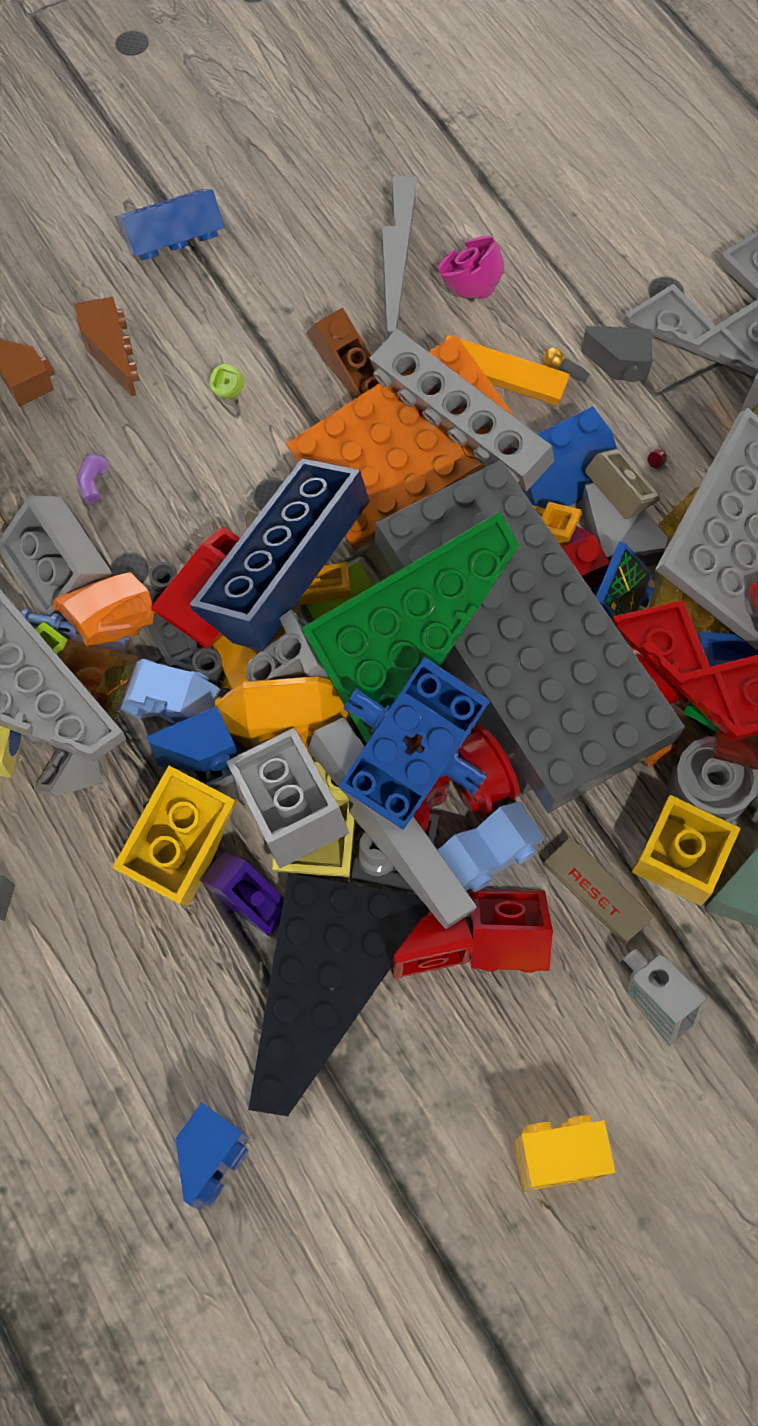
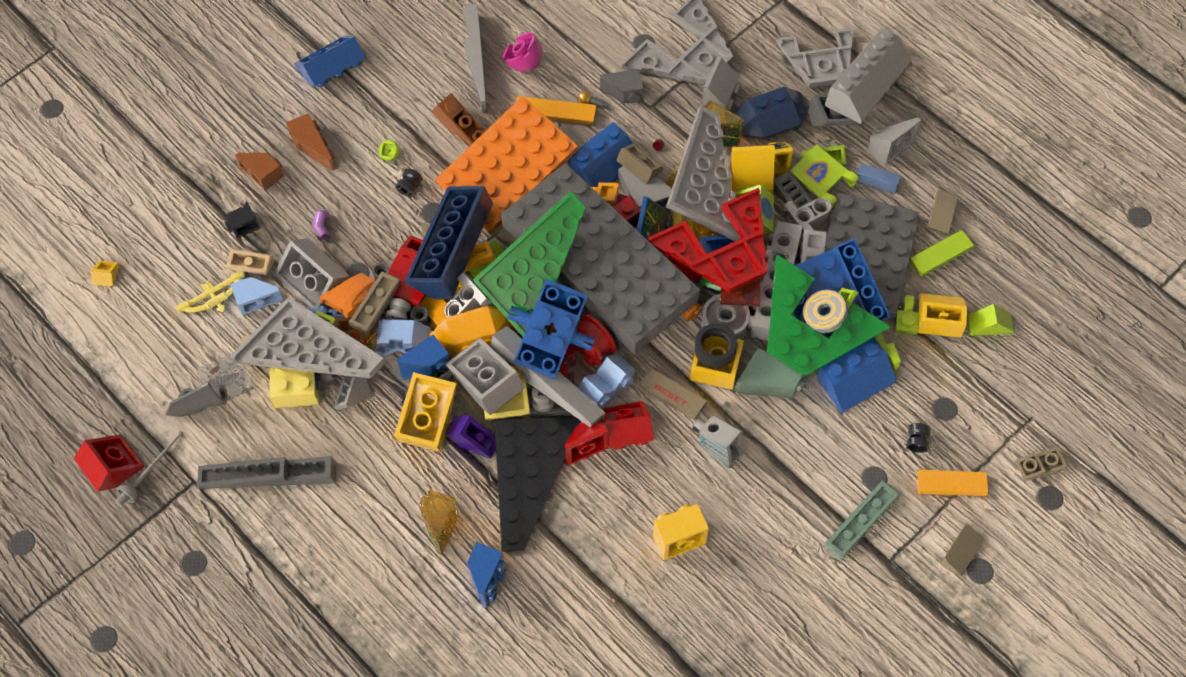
camera: 10 degrees left, 5 degrees down
(136, 629) = (375, 303): none -> dark tan tile
(150, 1034) = (439, 517): none -> clear yellow slope
(173, 649) = (398, 309): none -> light grey wheel
(244, 439) = (408, 183): none -> black wheel
(403, 354) = (494, 113): light grey brick -> none
(706, 806) = (715, 361): none -> black tyre

